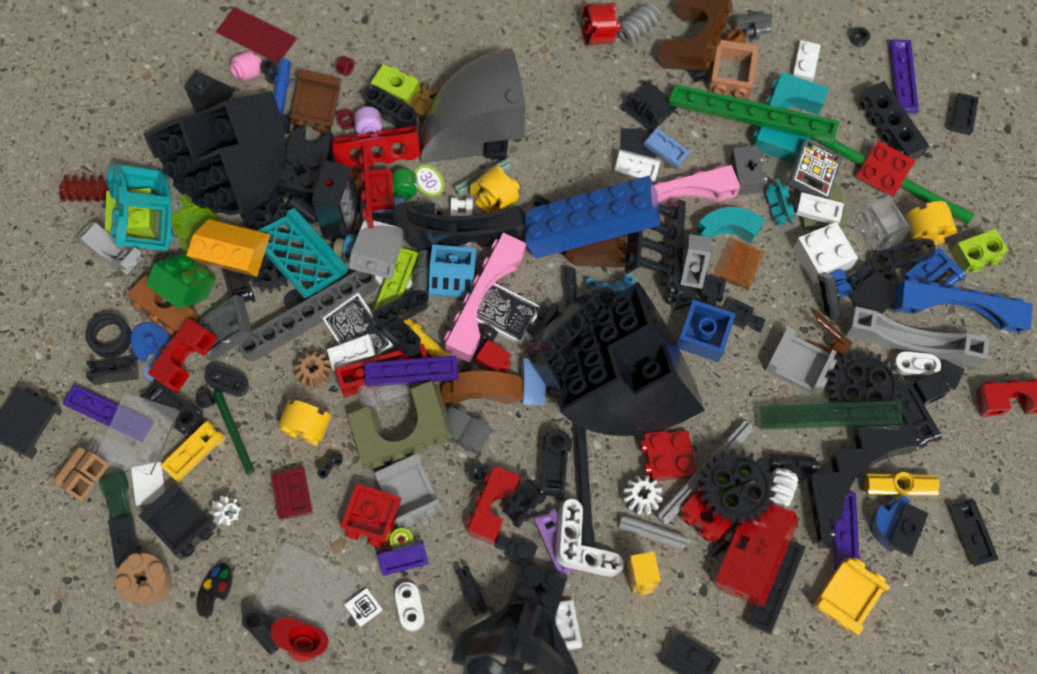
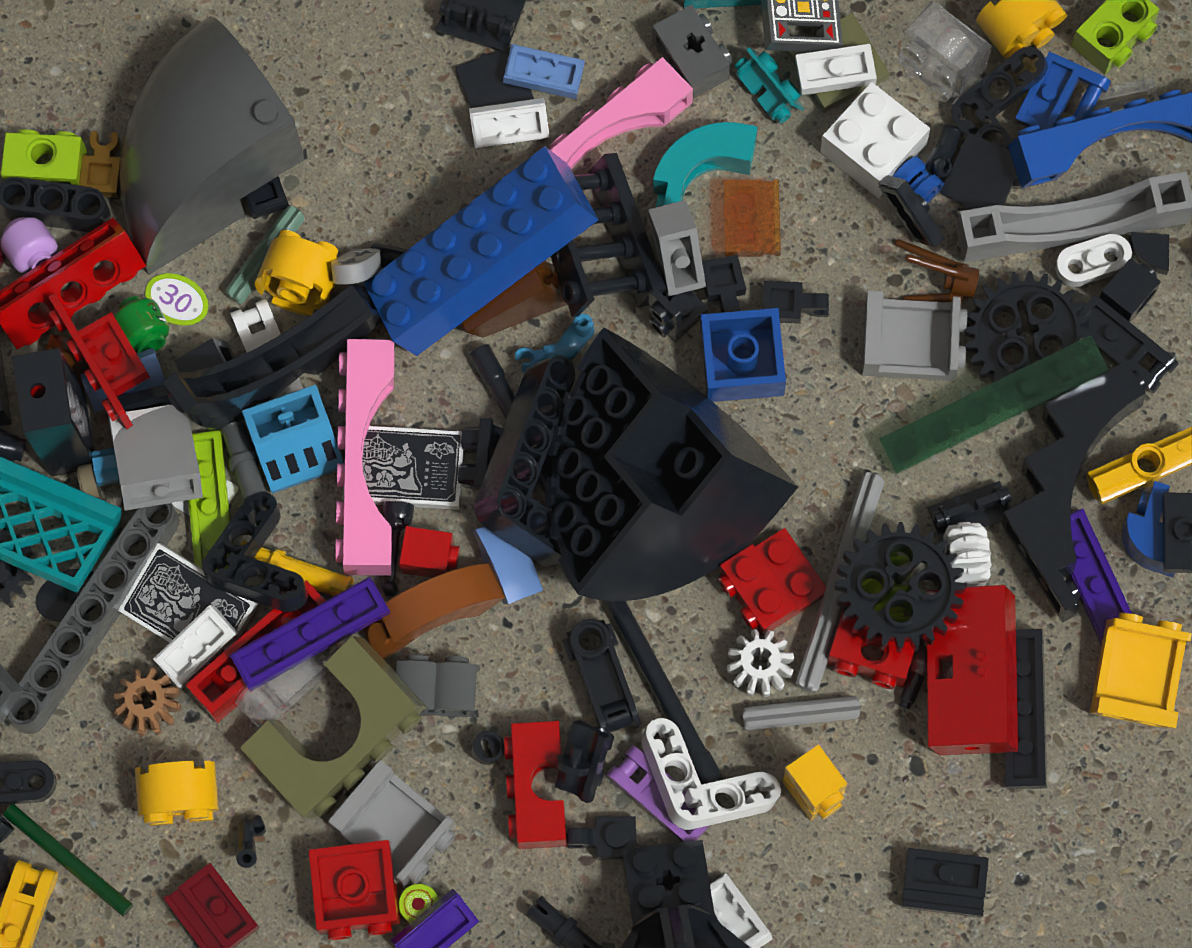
camera: 20 degrees left, 5 degrees up
(525, 199) = (356, 266): none -> light grey beam

